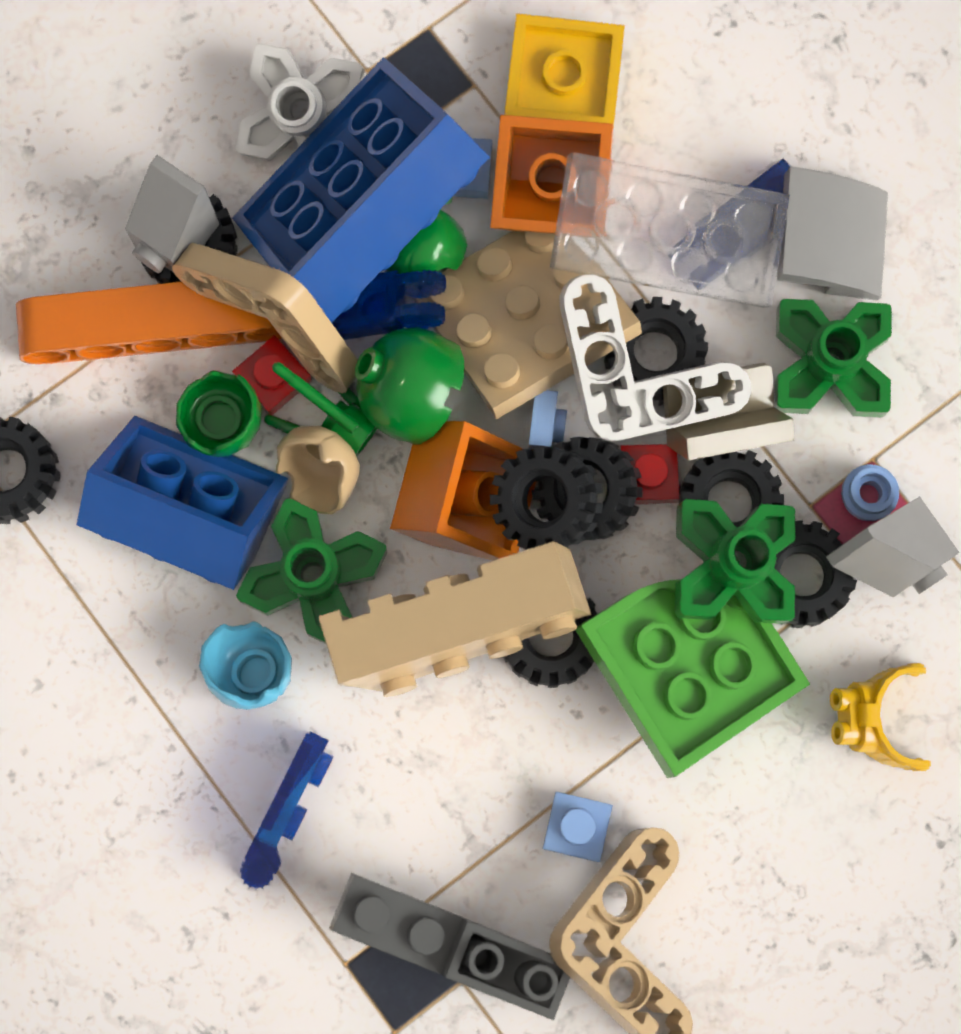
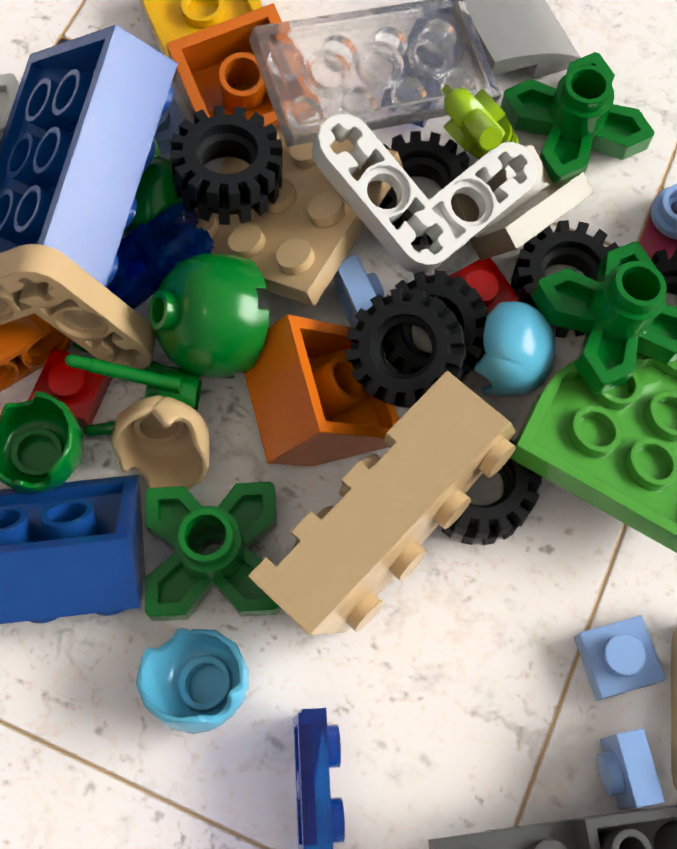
camera: 30 degrees left, 10 degrees down
(498, 230) = (226, 137): none -> black tyre
(526, 908) = (629, 770): none -> light blue plate
(639, 543) = (517, 350): none -> medium azure hair
(729, 330) = (476, 121): none -> lime piece

